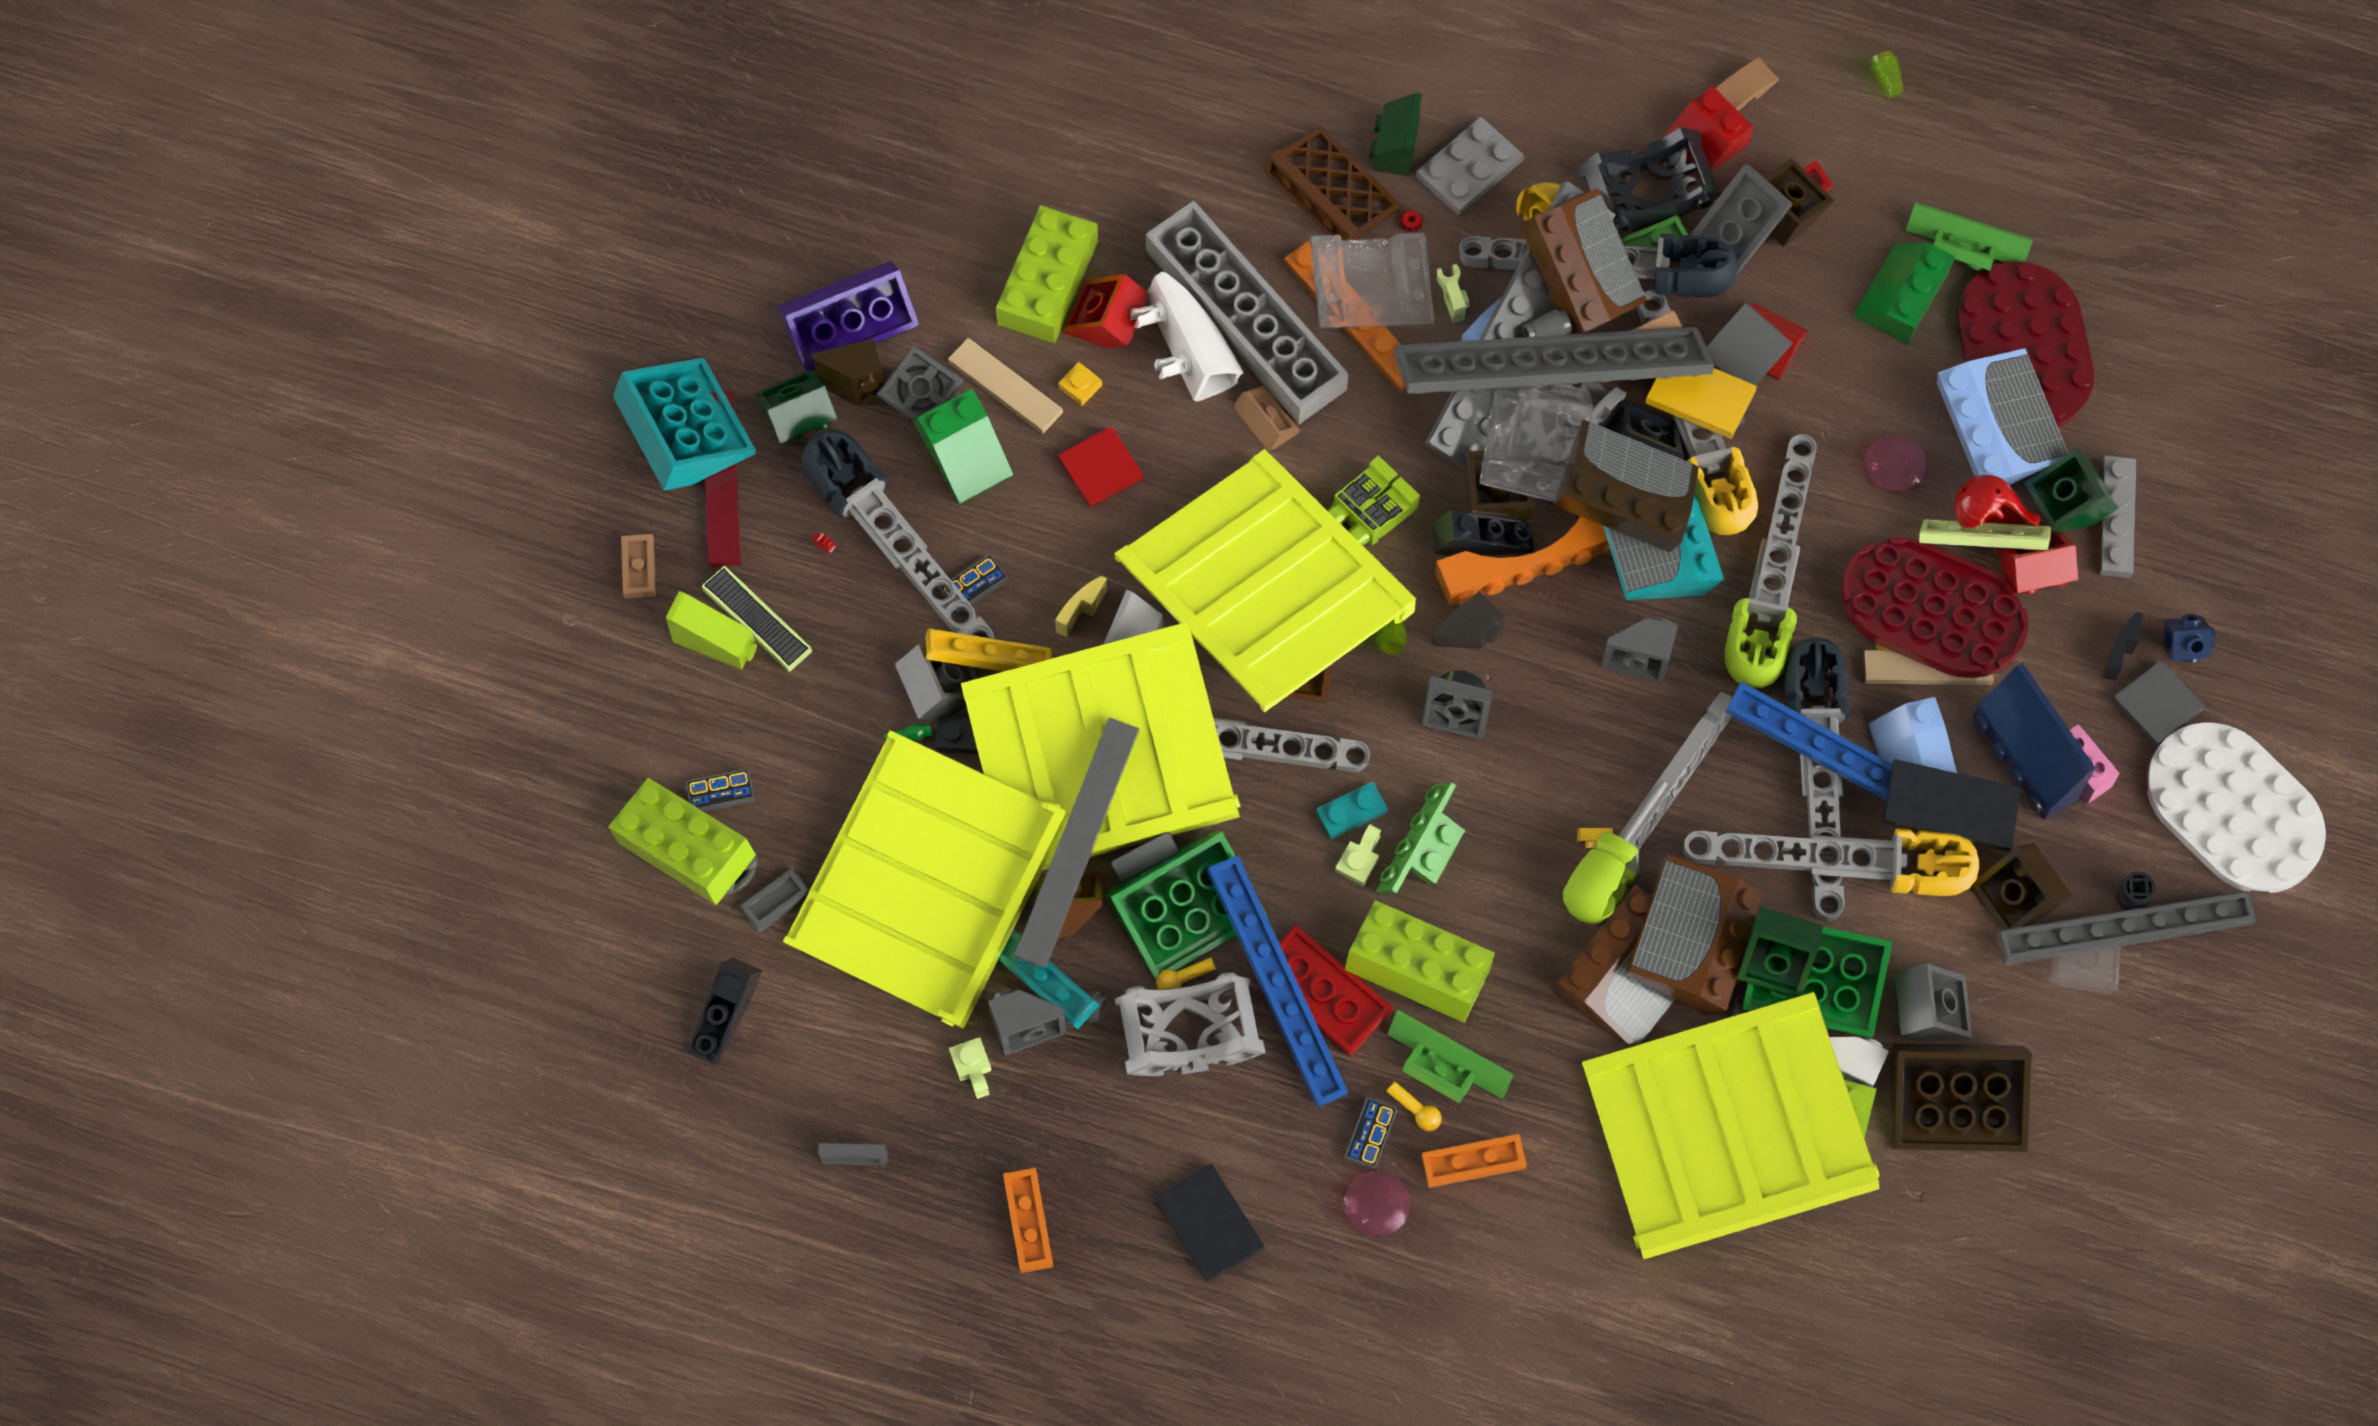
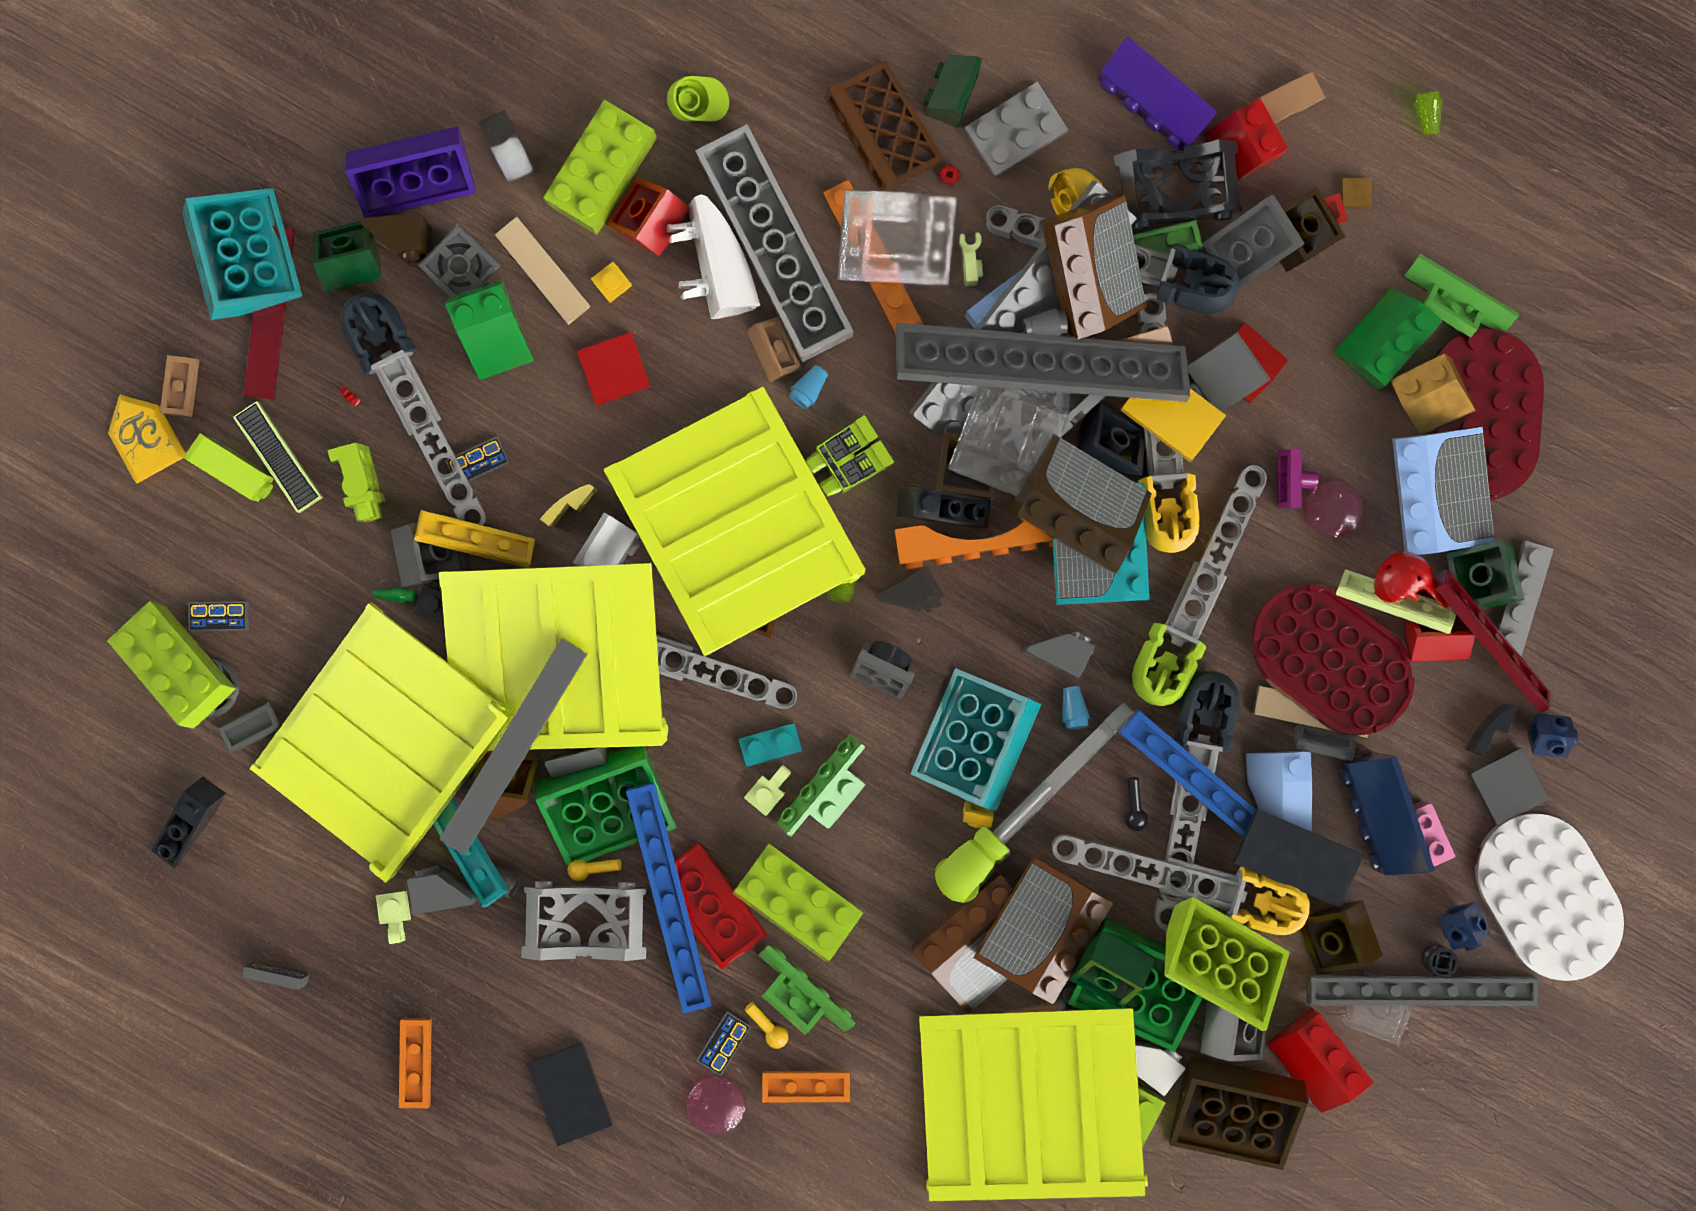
camera: 10 degrees right, 20 degrees up
(606, 627) = (143, 437): none -> yellow tile
(860, 631) = (359, 480): none -> lime hips
(943, 271) = (506, 145): none -> clear smoke slope
(1134, 193) = (698, 99): none -> lime cap
(1311, 446) = (808, 387): none -> dark azure cone
(1574, 759) = (975, 739): none -> teal slope
(1605, 102) = (1155, 95): none -> dark purple slope
(1673, 712) = (1074, 709): none -> dark azure cone
(1768, 812) = (1136, 818): none -> black bar
(1835, 161) = (1356, 193): none -> pearl gold tile
(1843, 441) = (1292, 479): none -> magenta tile
(1900, 917) = (1224, 961): none -> lime slope
(1949, 691) = (1324, 742): none -> dark grey tile
(1965, 326) = (1433, 394): none -> pearl gold slope
(2038, 1017) = (1320, 1059): none -> red slope
(2097, 551) = (1493, 640): none -> dark red tile
(2151, 849) = (1464, 926): none -> dark blue brick

